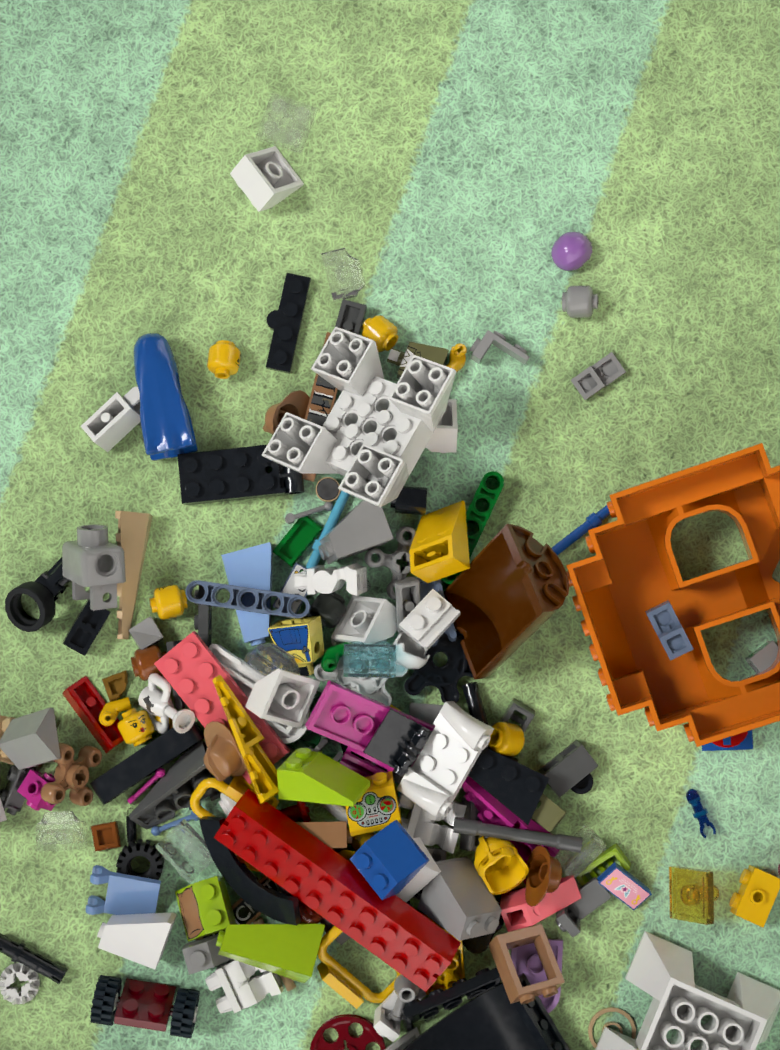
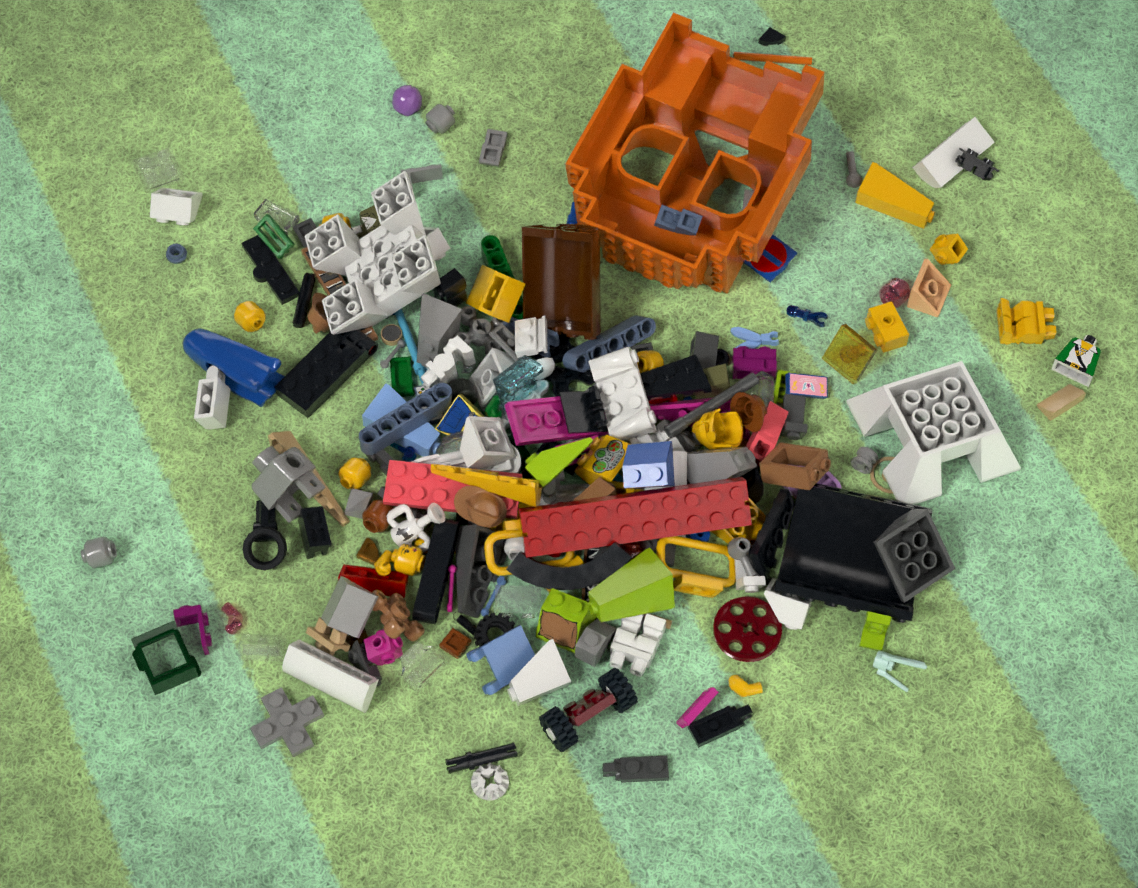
camera: 40 degrees left, 25 degrees down
(219, 224) = (173, 249): none -> sand blue plate
(232, 624) = (408, 453): none -> clear blue hand
(285, 384) = (303, 300): none -> black axle
(320, 294) = (284, 248): none -> green tile
(499, 687) = (618, 337): none -> sand blue beam
(601, 1001) = (864, 460): none -> light grey wheel
(604, 819) = (753, 361): none -> magenta brick
(630, 790) = (753, 339): none -> light blue piece

